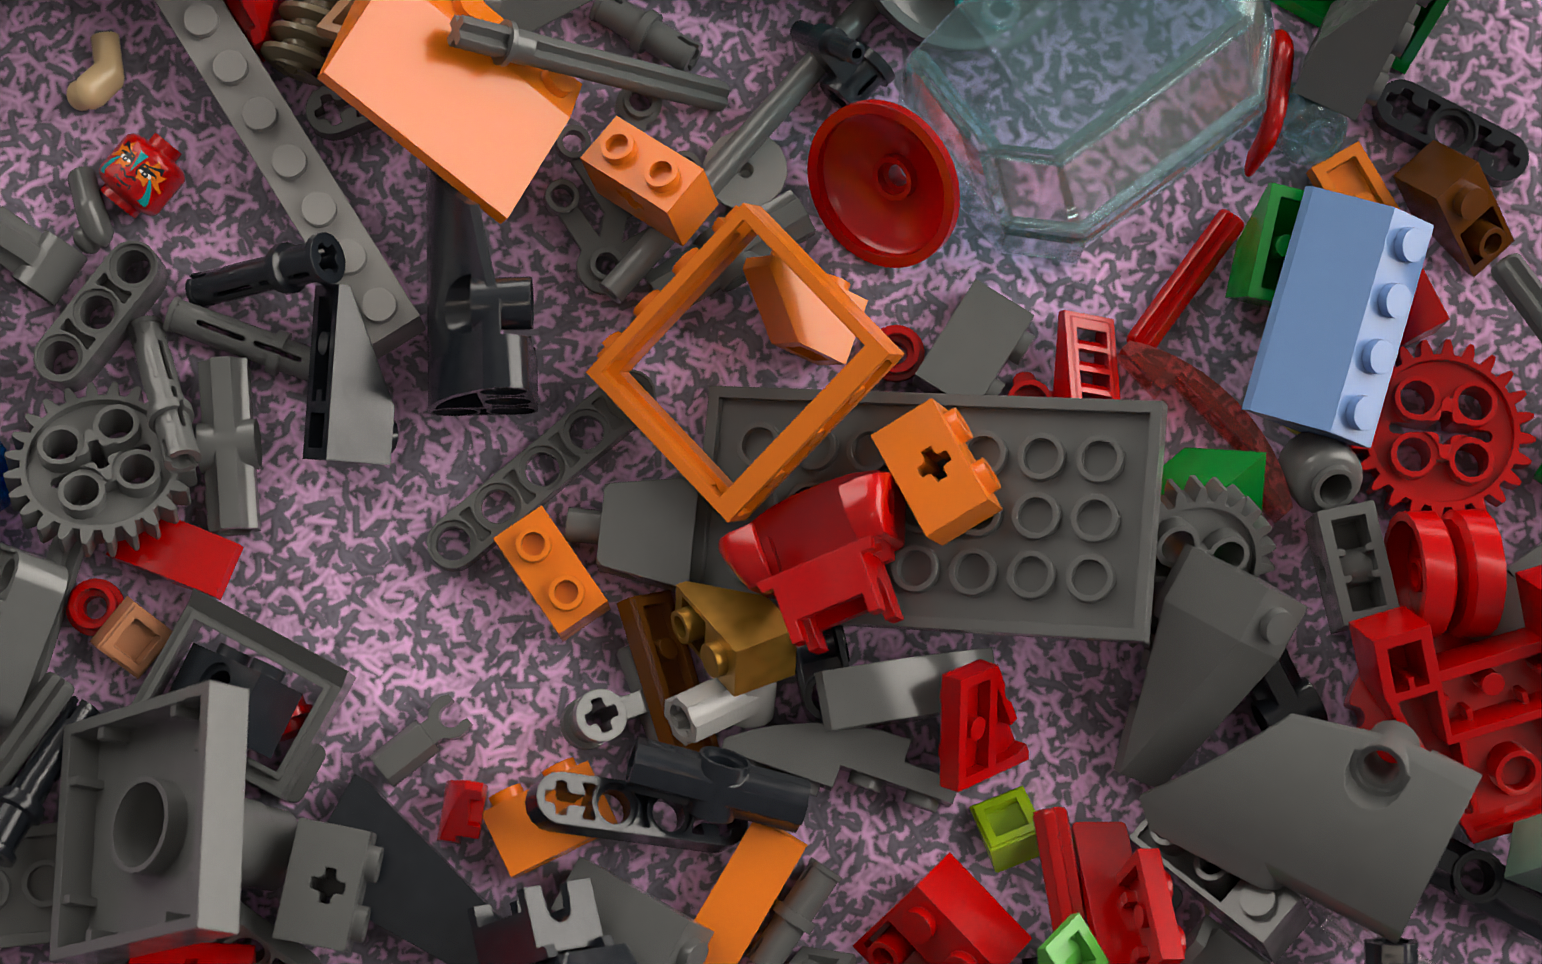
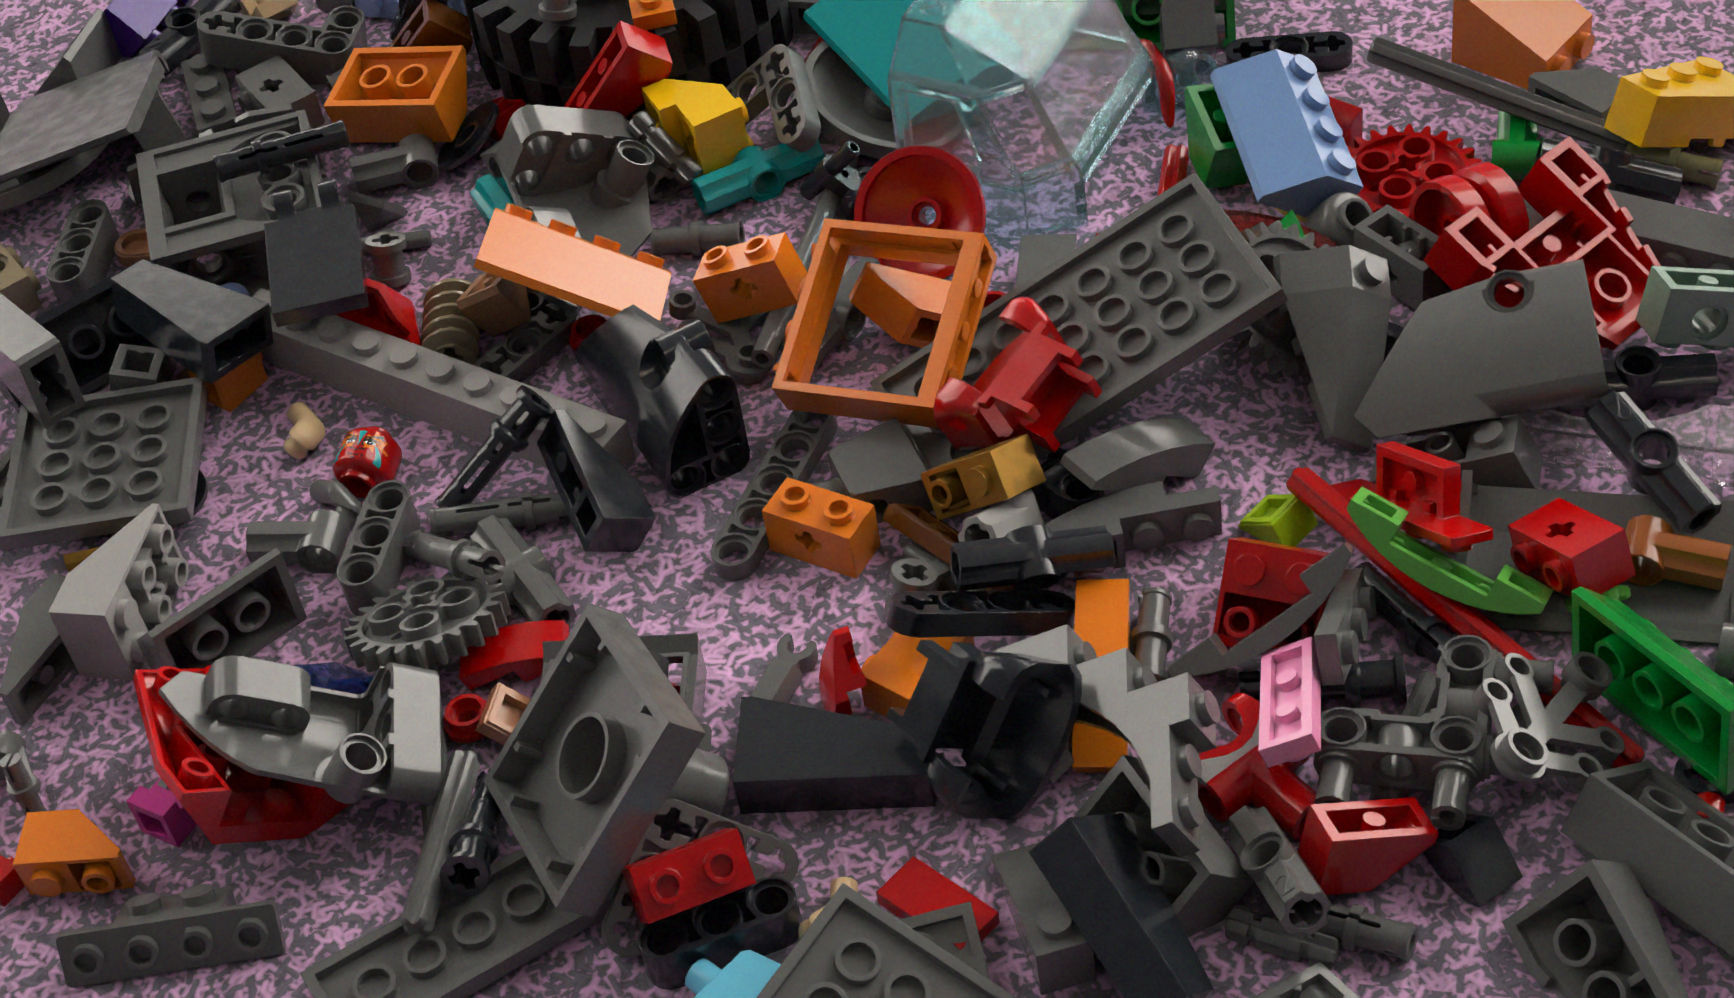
camera: 15 degrees left, 35 degrees down
(303, 908) = (762, 755): dark grey brick -> none
(524, 47) = (603, 224): dark grey axle -> none
(911, 452) = (1072, 292): orange brick -> none
(976, 726) = (1201, 440): red wing -> none
(1458, 201) = (1336, 72): reddish brown slope -> none

